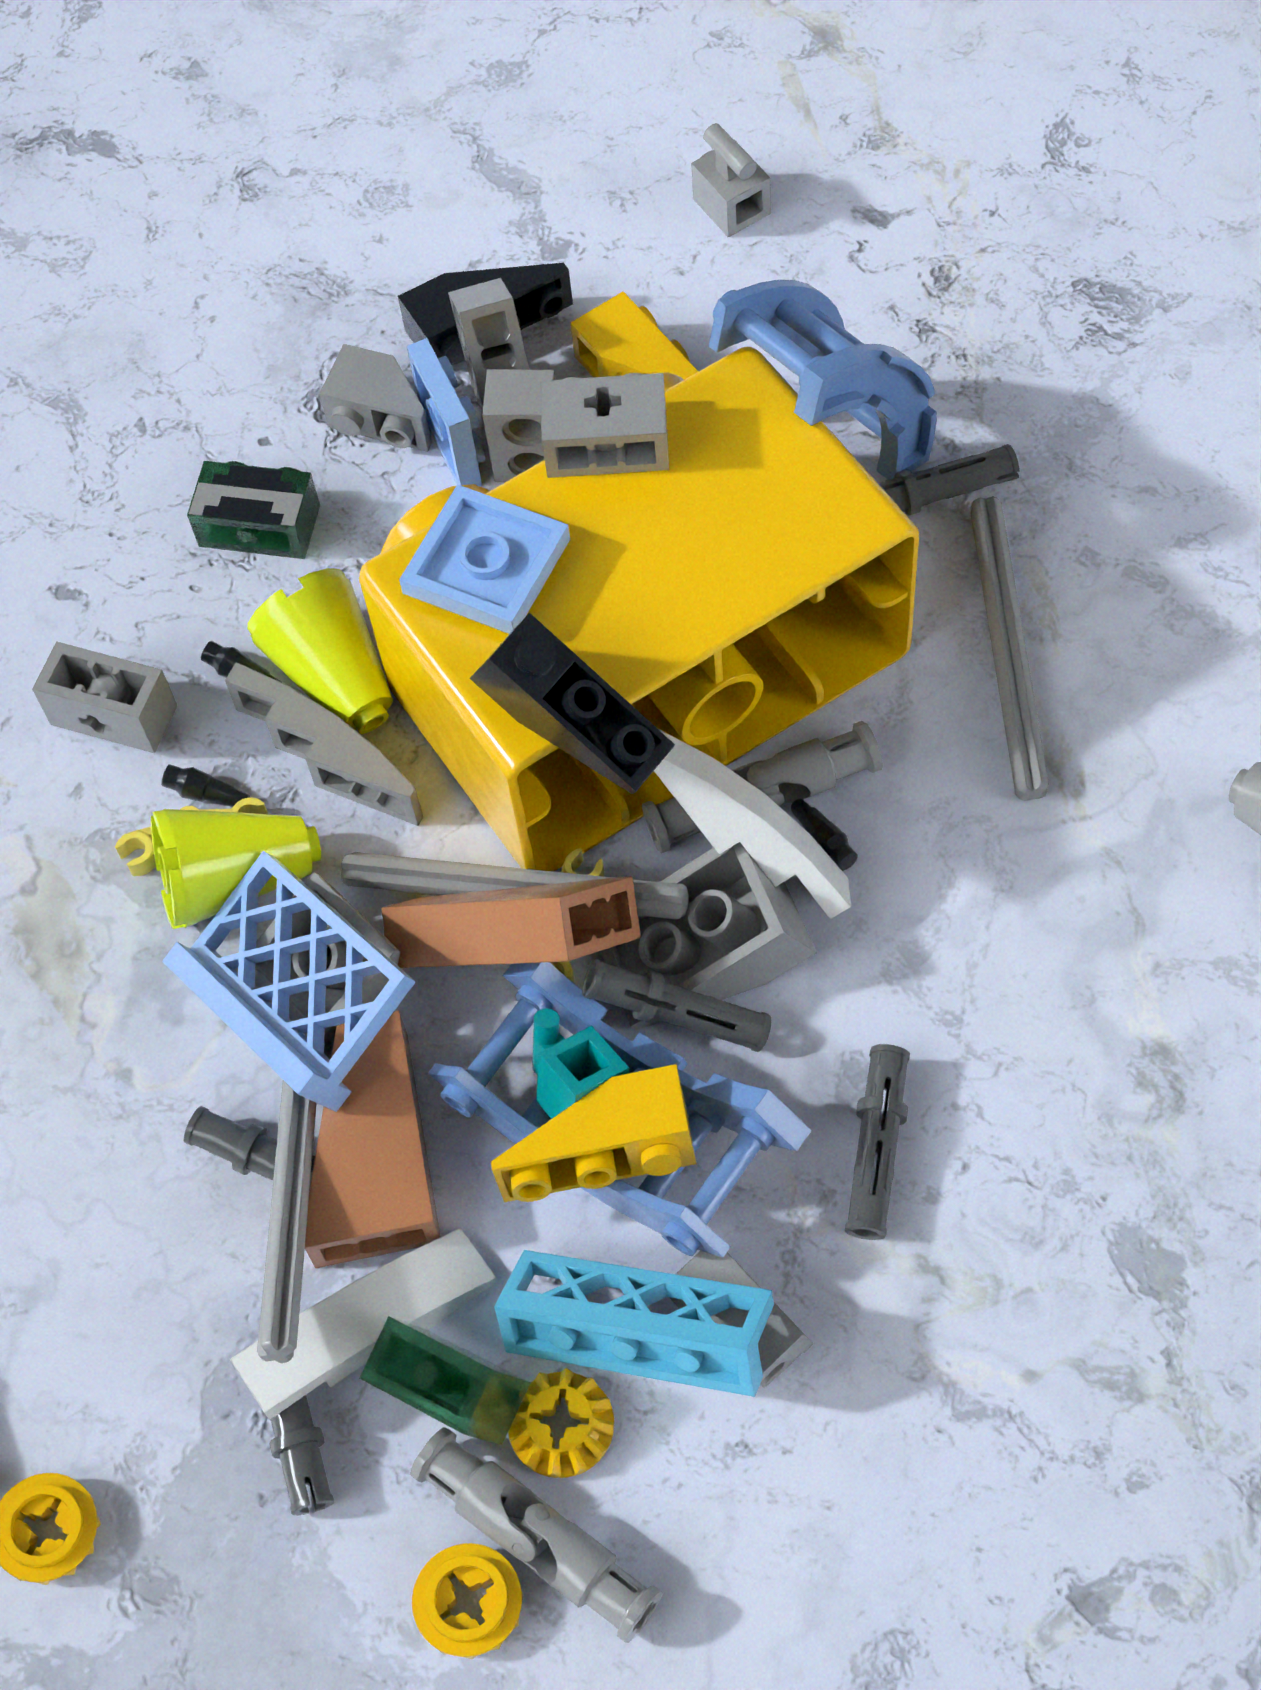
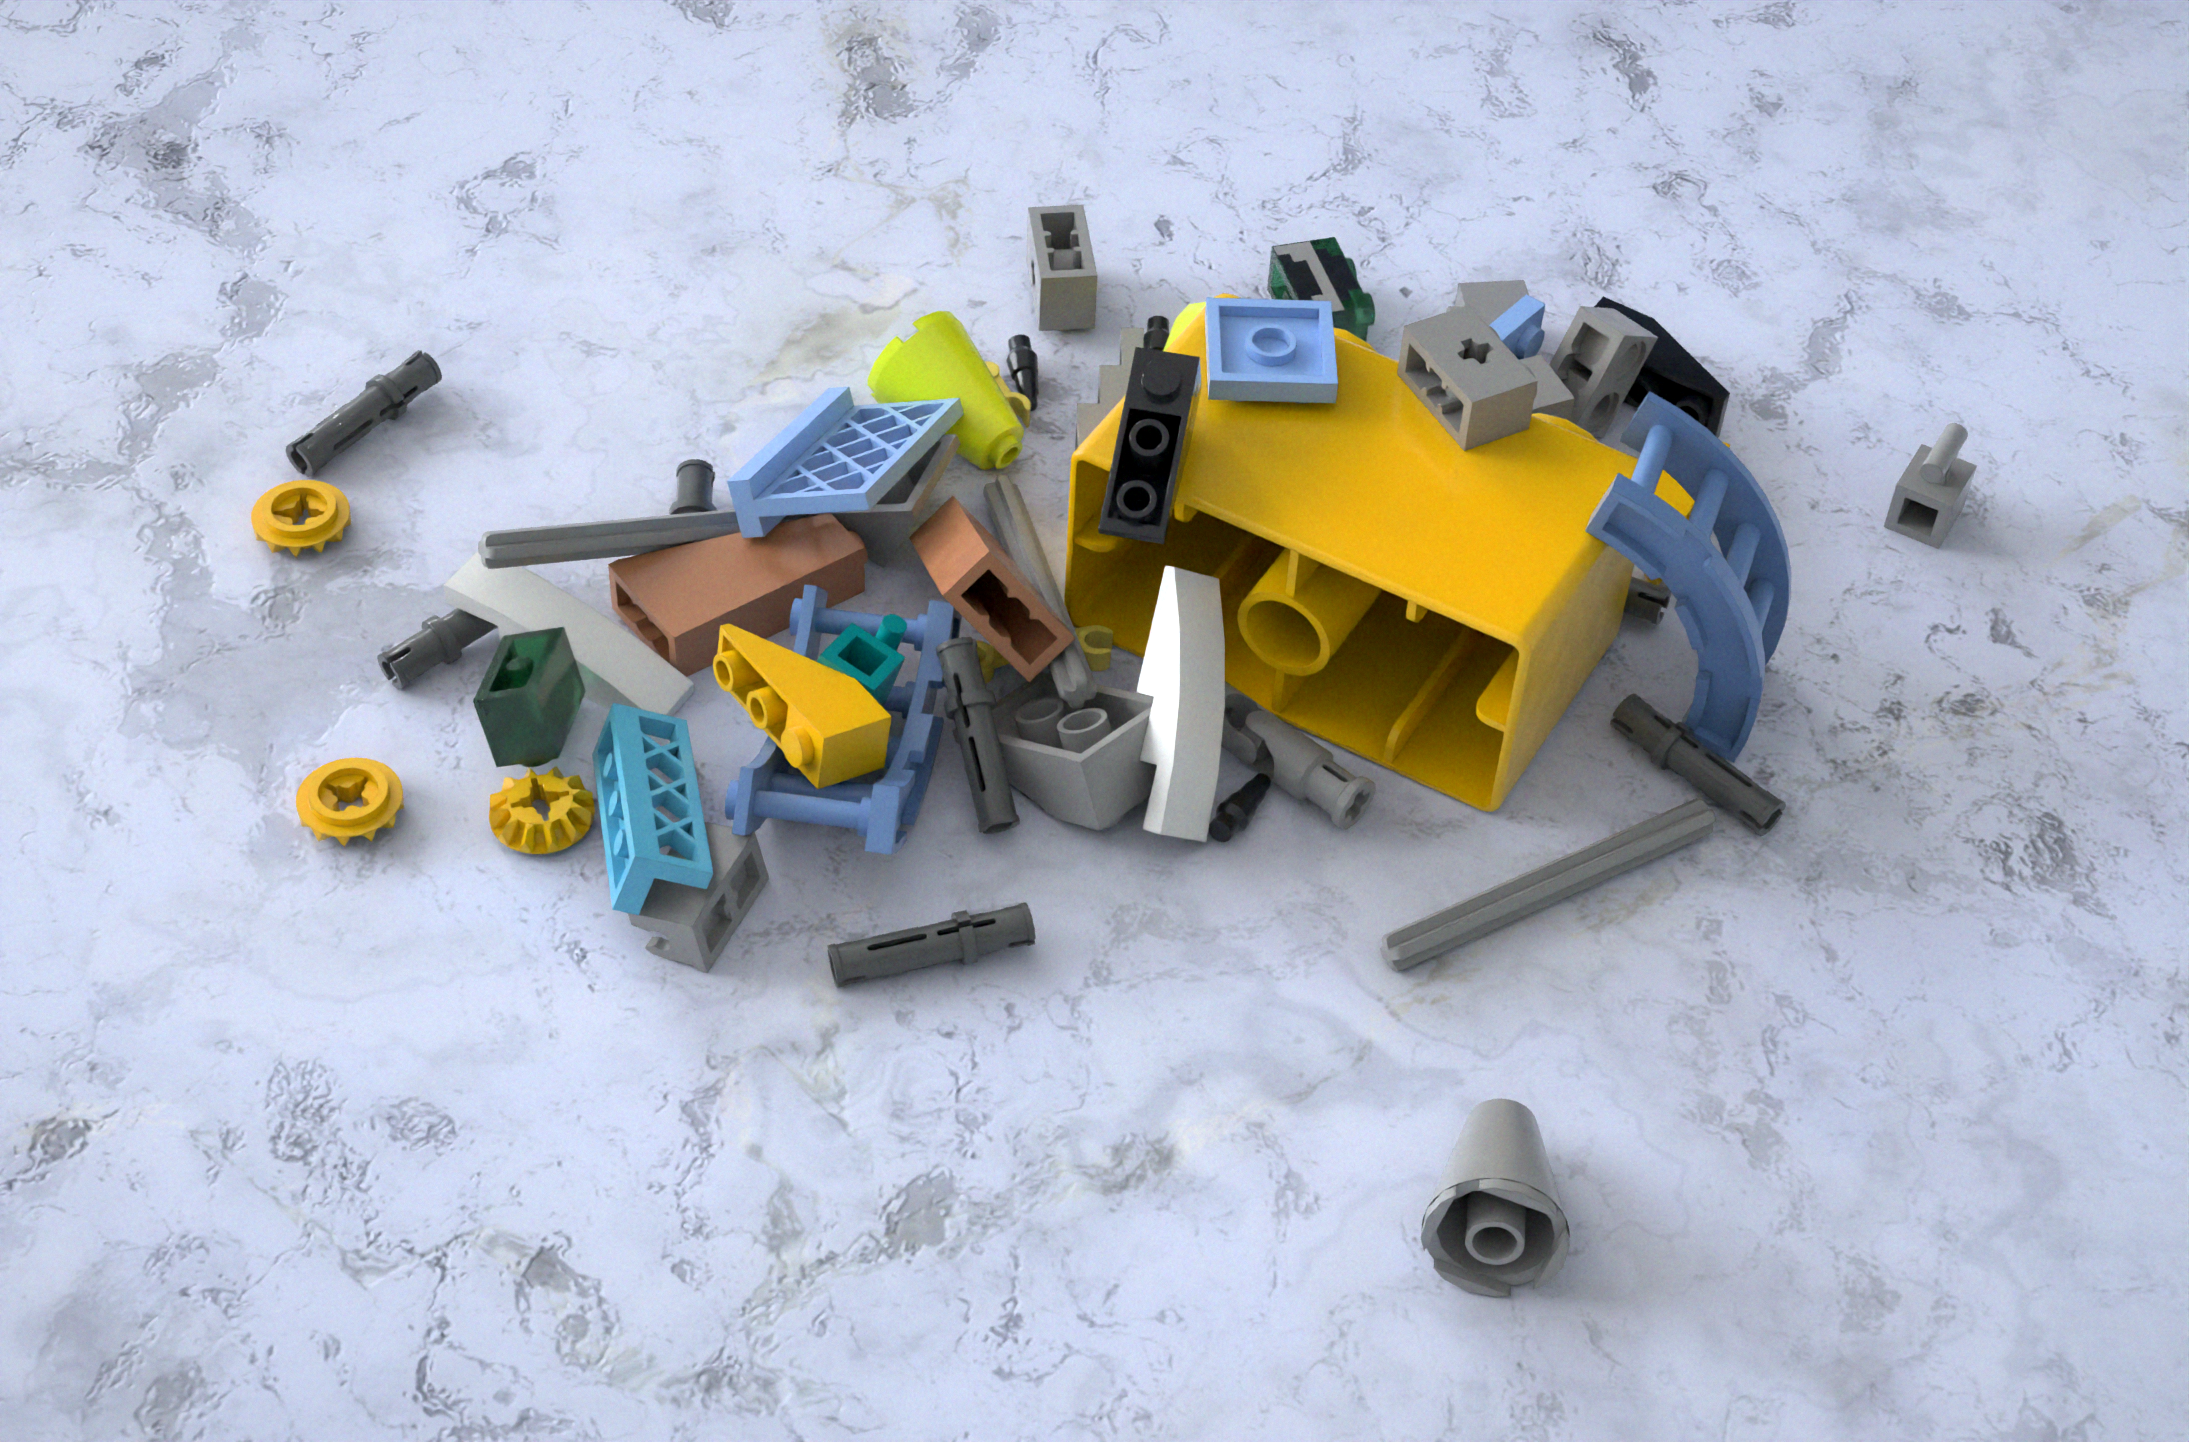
camera: 55 degrees right, 15 degrees down
(543, 1540) = (416, 850): light grey piece -> none

